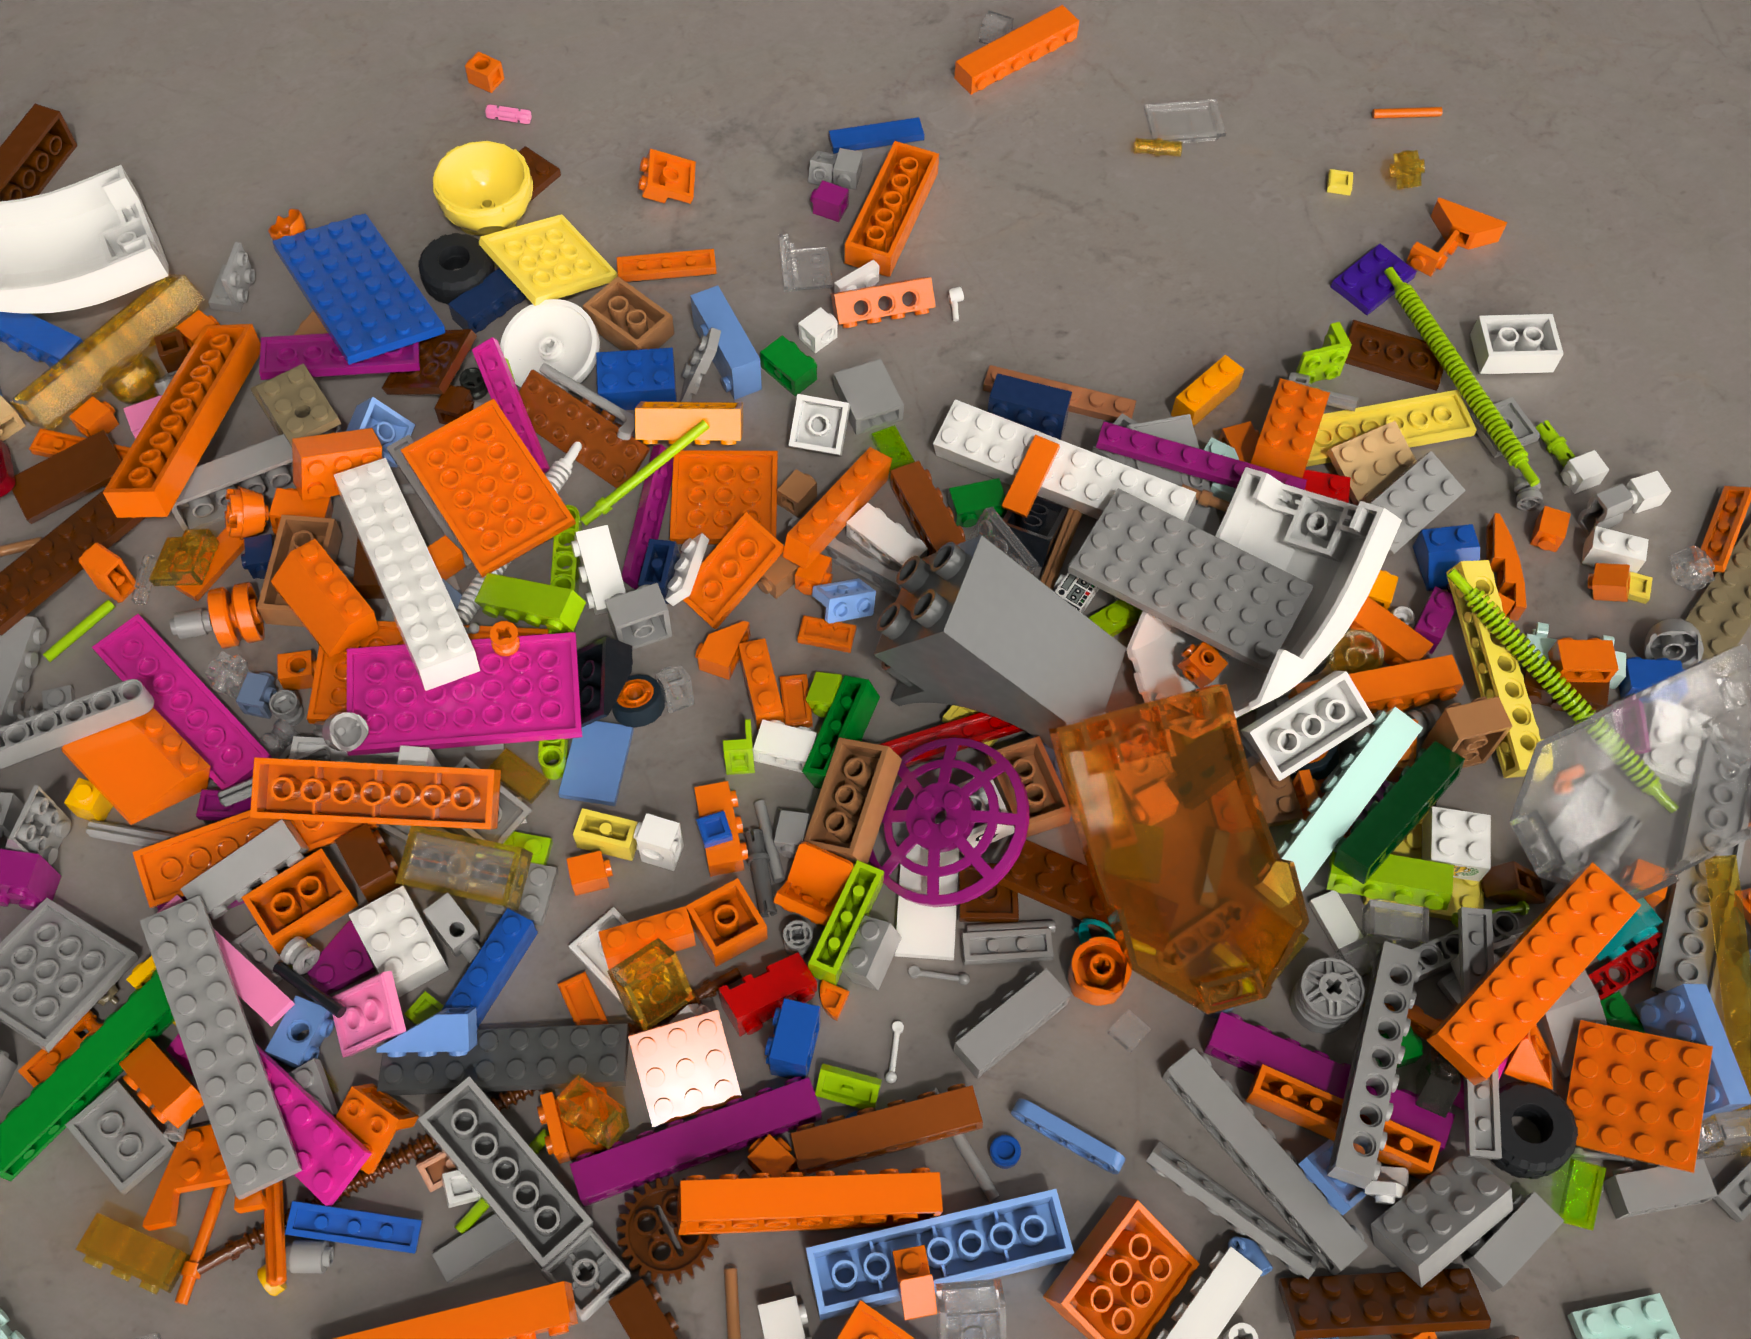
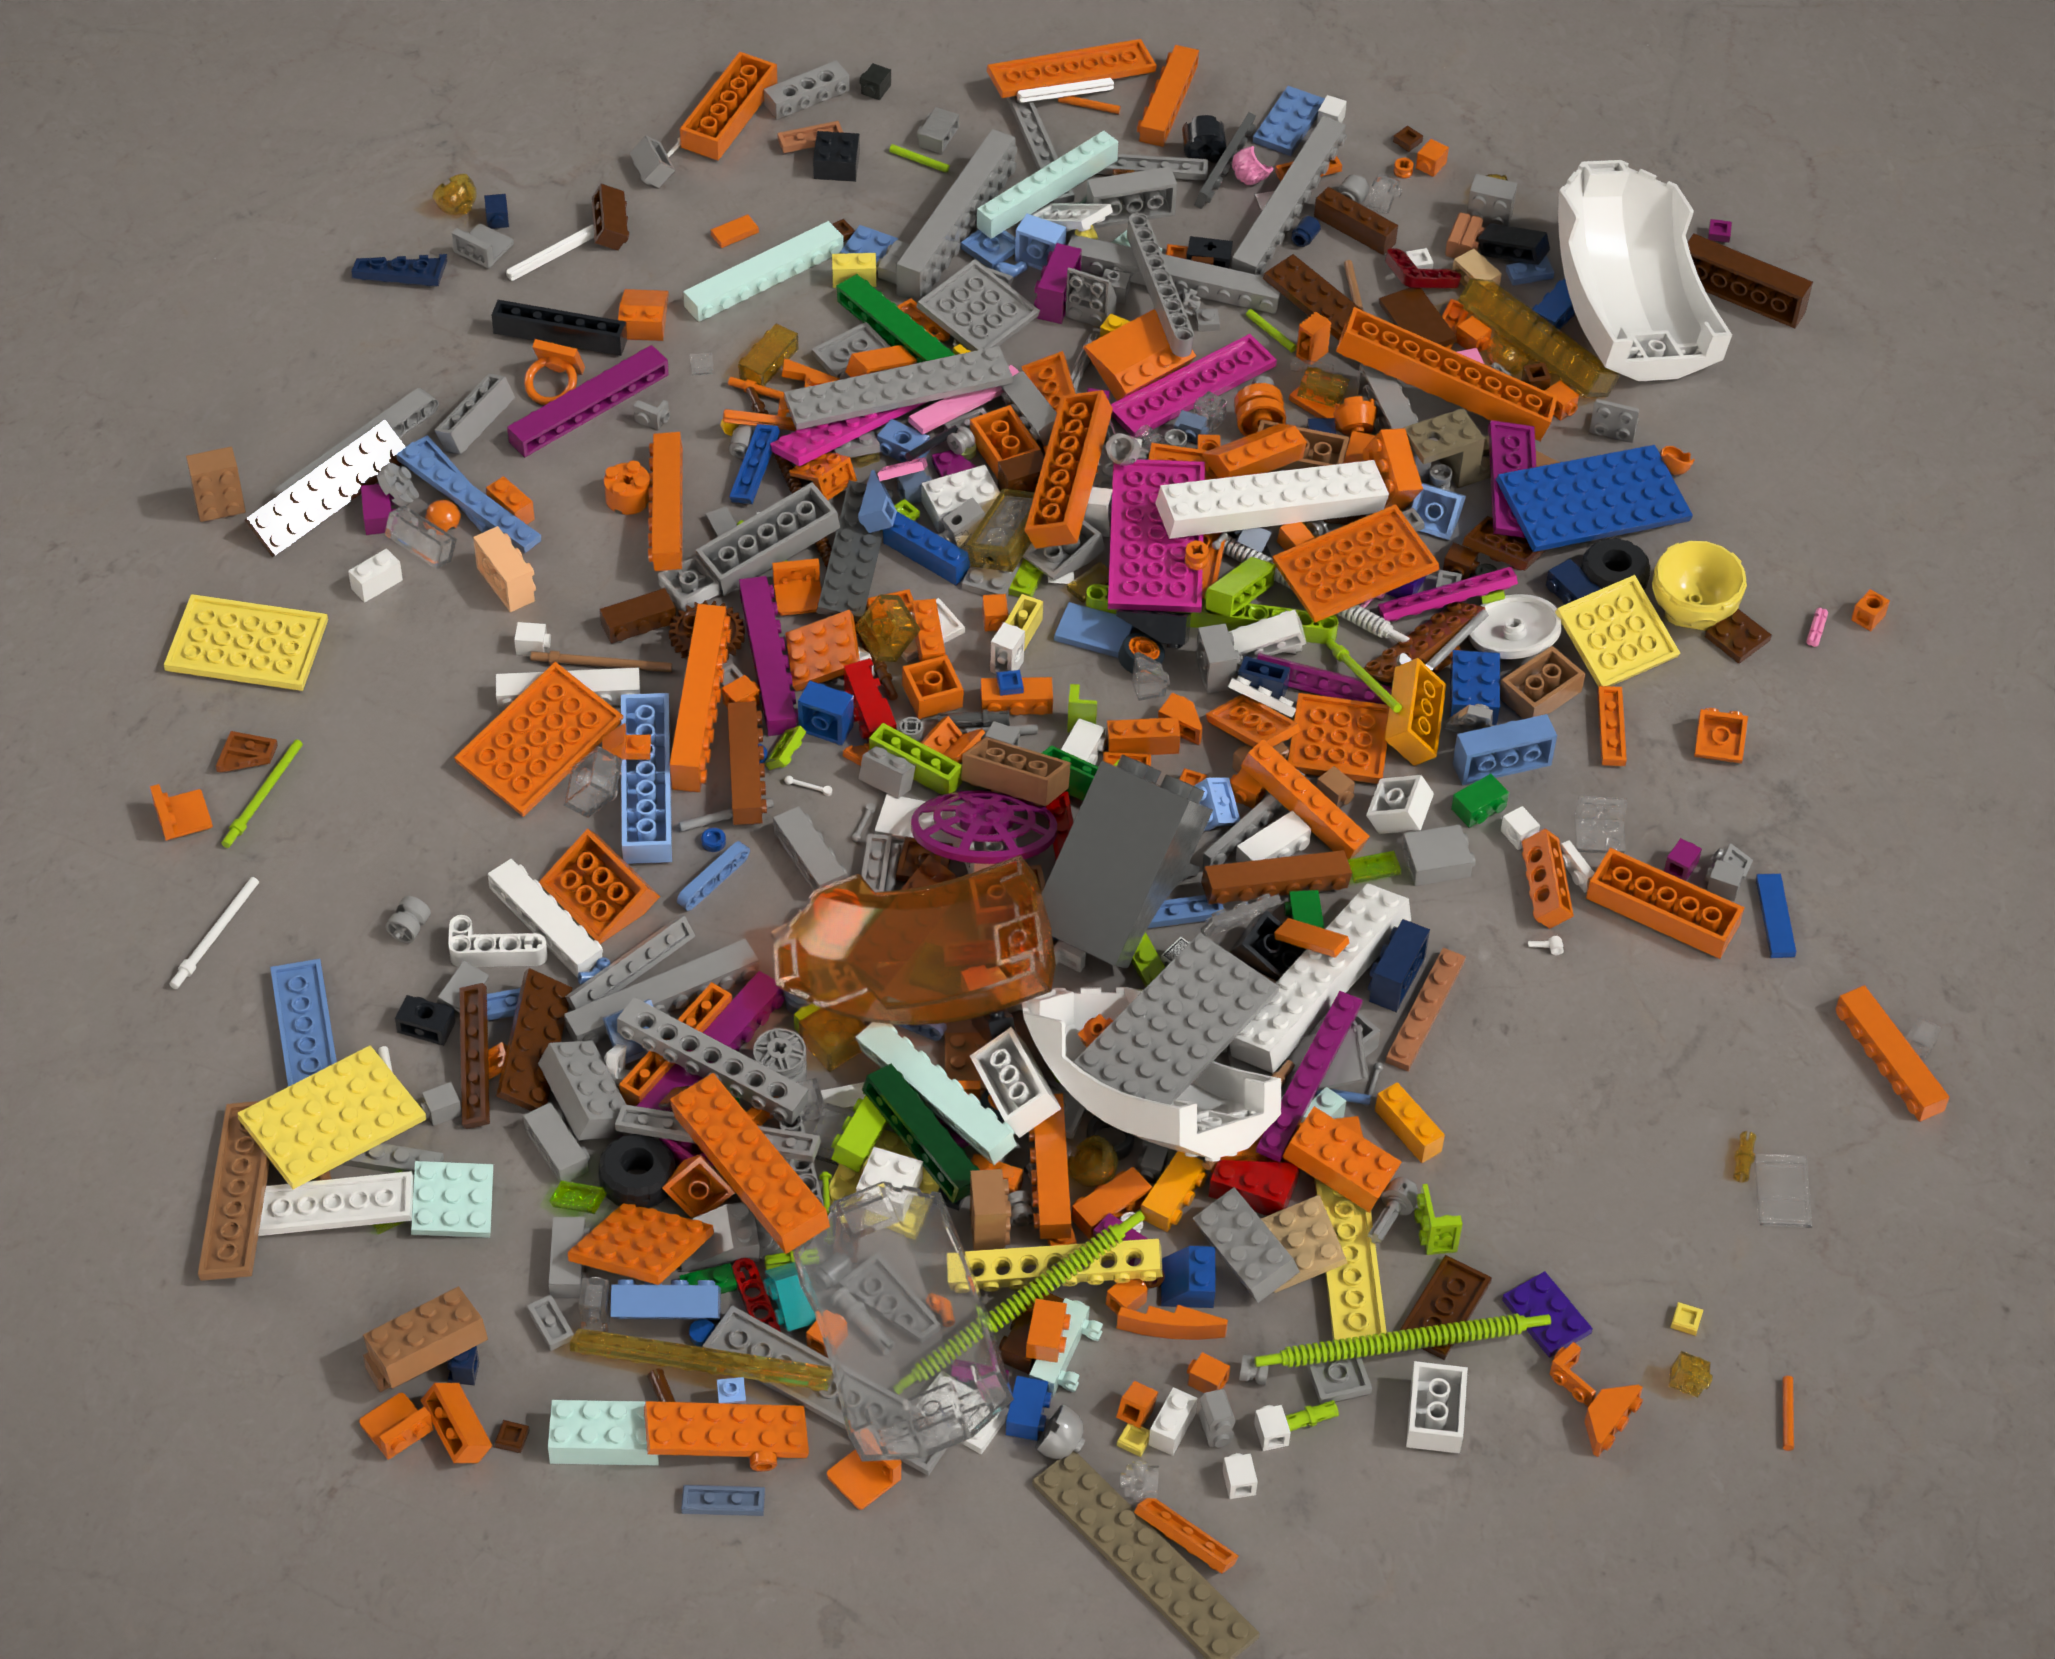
camera: 100 degrees right, 10 degrees down
(592, 1112) = (798, 587): clear yellow brick -> none

